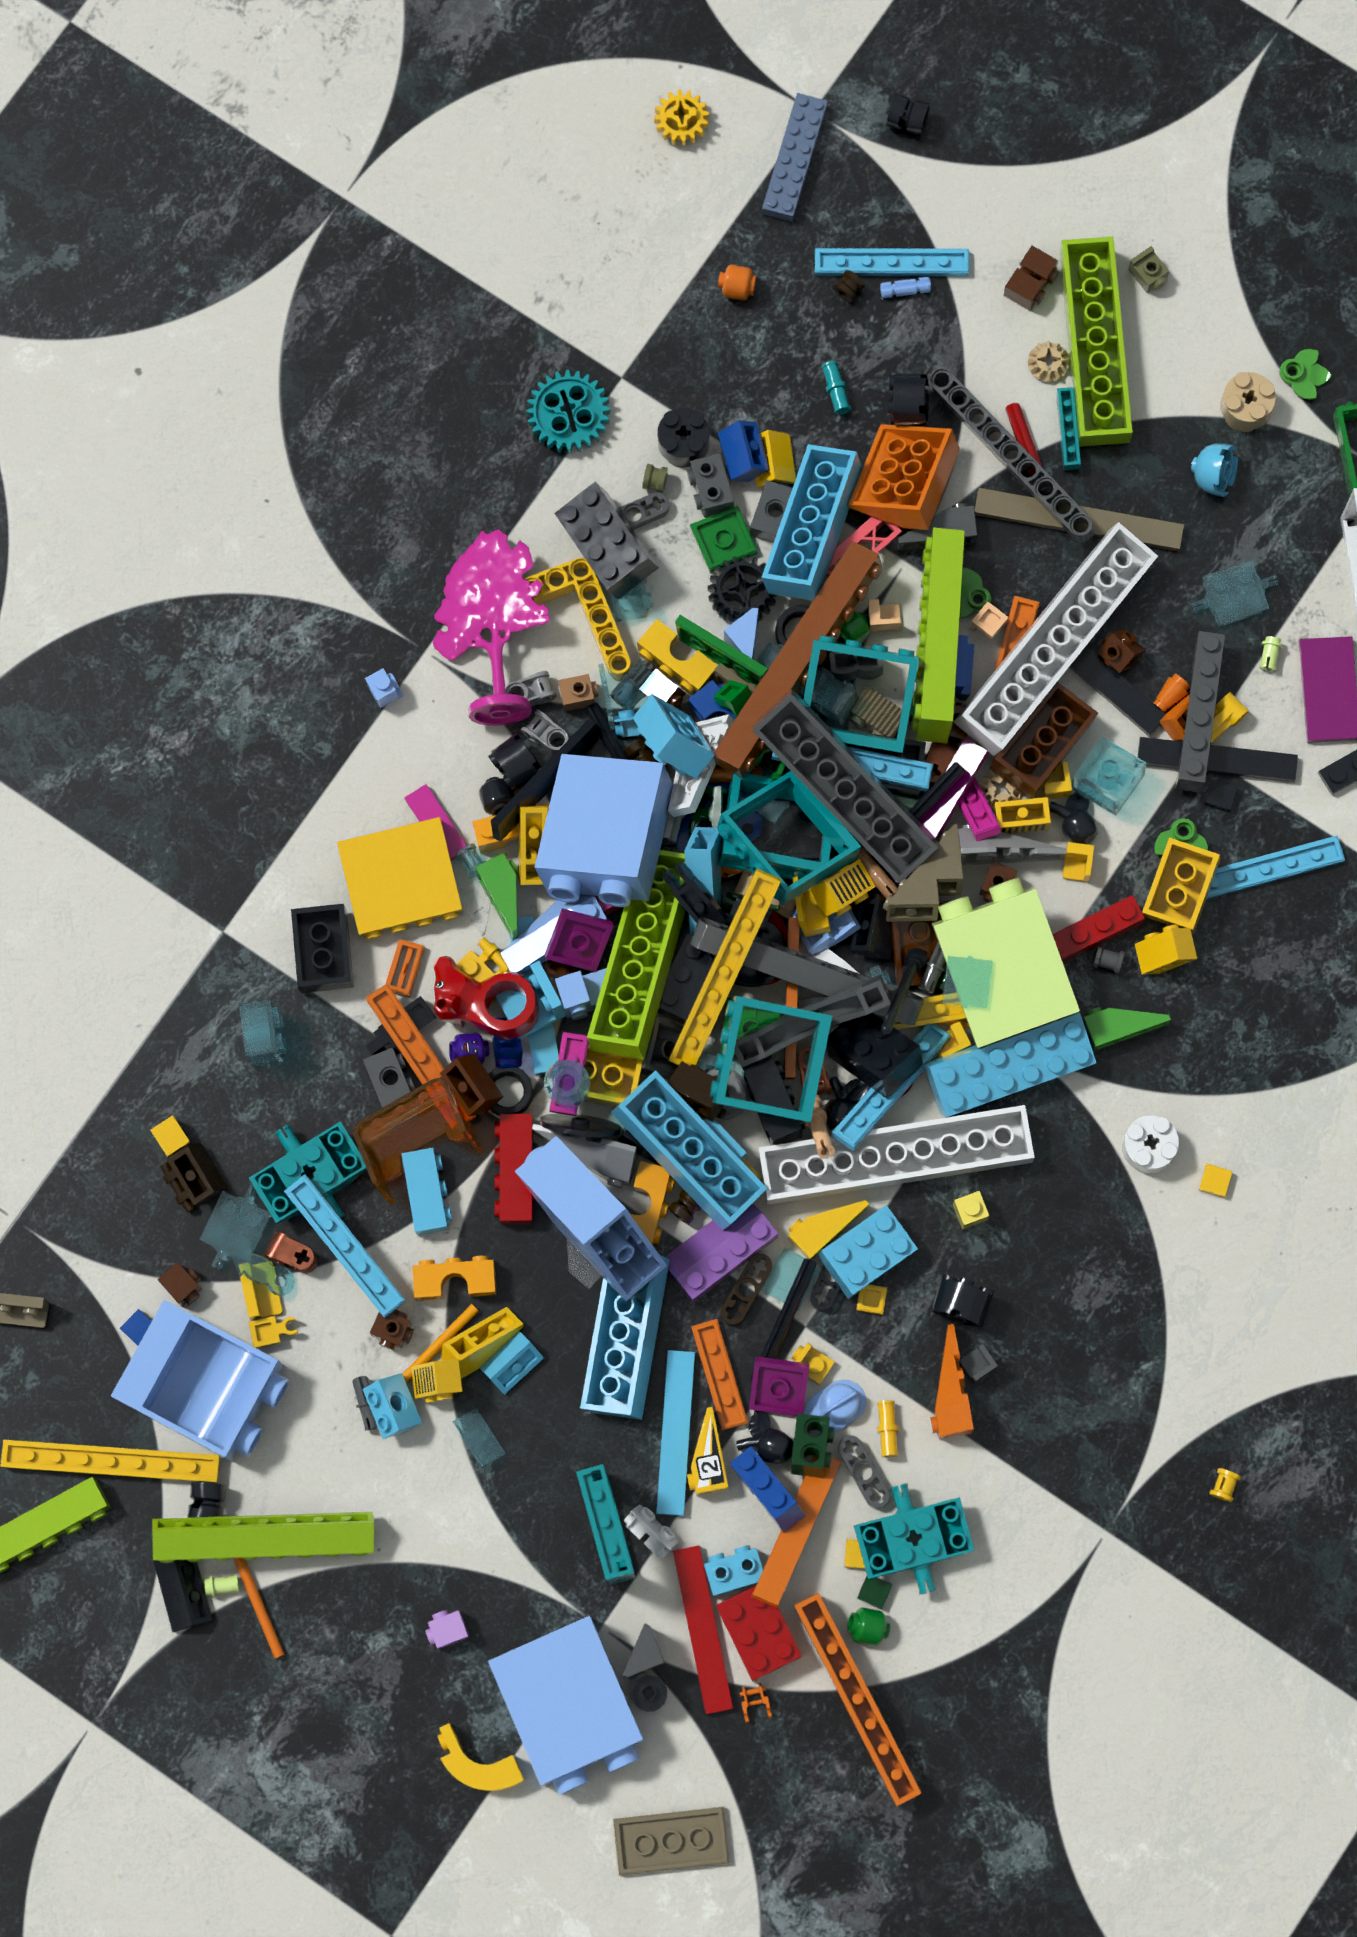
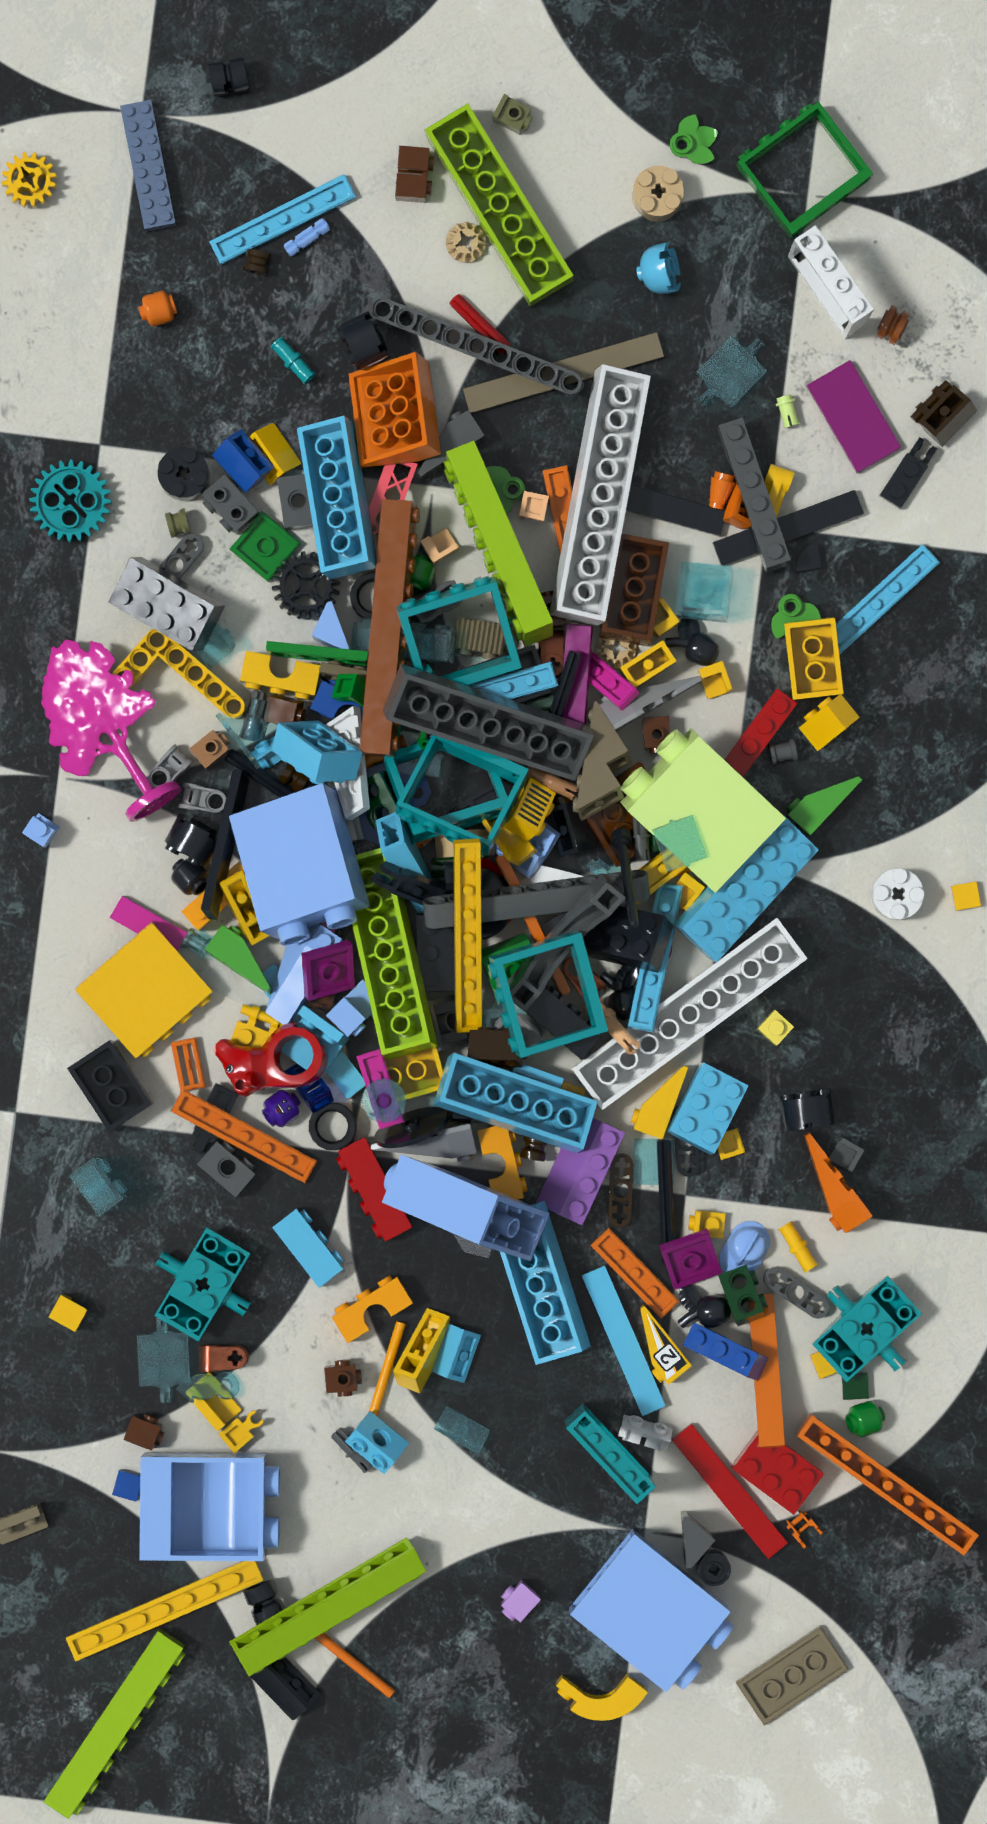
camera: 35 degrees left, 10 degrees up
(192, 1176) = (105, 1336): dark brown brick -> none
(221, 1585) = (312, 1661): yellowish green pin -> none
(344, 1246) = (267, 1332): medium azure tile -> none
(407, 1126) = (263, 1200): clear orange windscreen -> none
(436, 1380) = (403, 1402): yellow brick -> none
(471, 1085) = (302, 1140): reddish brown brick -> none
(734, 1571) = (731, 1430): medium azure brick -> none
(964, 668) = (534, 560): blue slope -> none
(1068, 428) = (514, 296): teal piece -> none
(1120, 650) = (658, 474): reddish brown brick -> none

